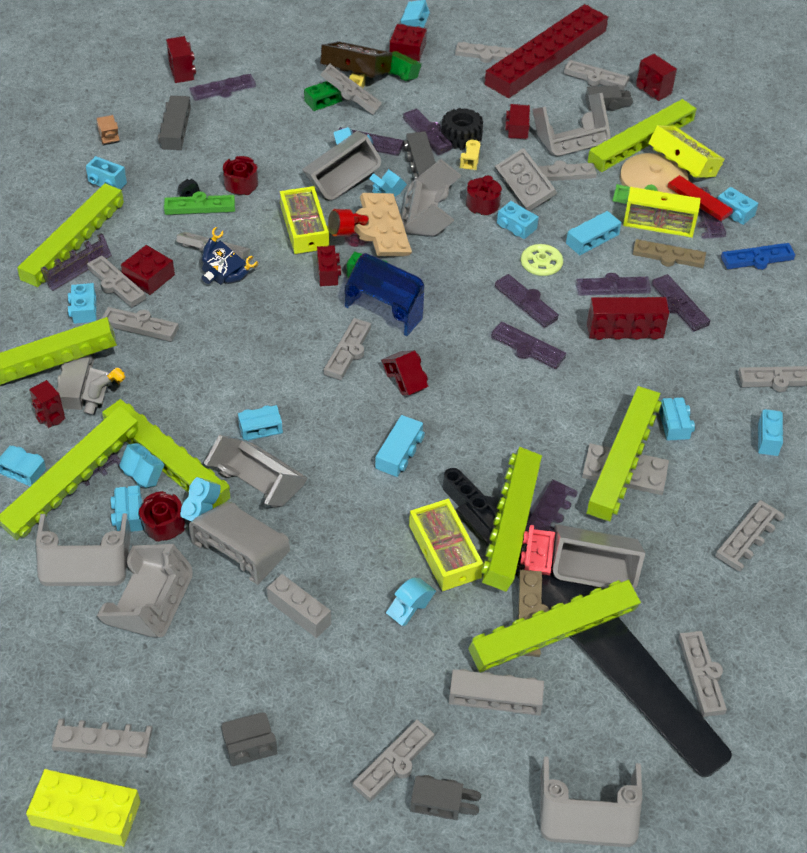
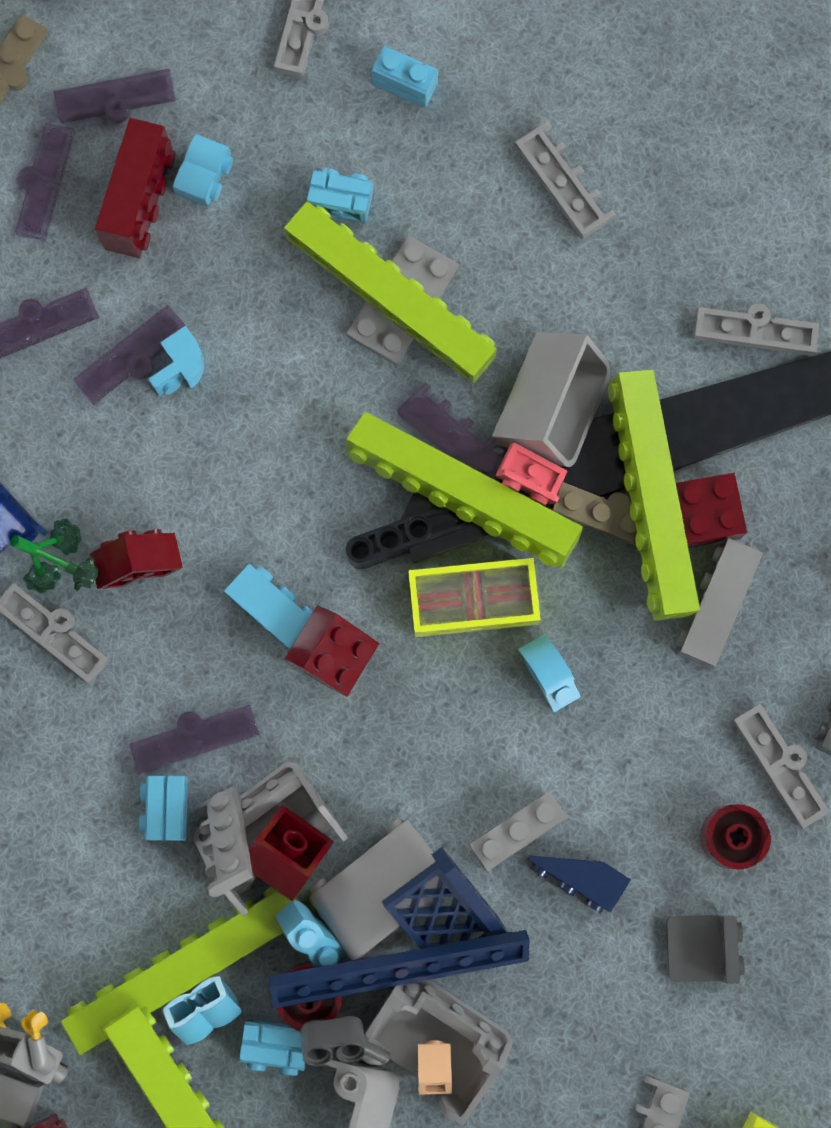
camera: 70 degrees left, 30 degrees up
(131, 591) = (434, 1068): none -> light nougat brick
(138, 528) = (340, 1036): none -> dark grey beam
(192, 551) = (398, 969): none -> dark blue plate
(247, 441) = (227, 841): none -> light grey hinge
(248, 571) = (457, 887): none -> dark blue fence
(249, 478) = (288, 852): none -> dark red brick
(278, 659) = (592, 879): none -> dark blue slope
(307, 427) = (194, 738): none -> clear purple hinge
(333, 736) = (751, 828): none -> dark red brick
(383, 474) = (332, 650): none -> dark red brick
(384, 342) = (43, 575): none -> clear green plant
(535, 369) = (186, 359): none -> medium azure brick
(560, 668) = (711, 509): none -> dark red brick
(656, 350) = (202, 170): none -> medium azure brick

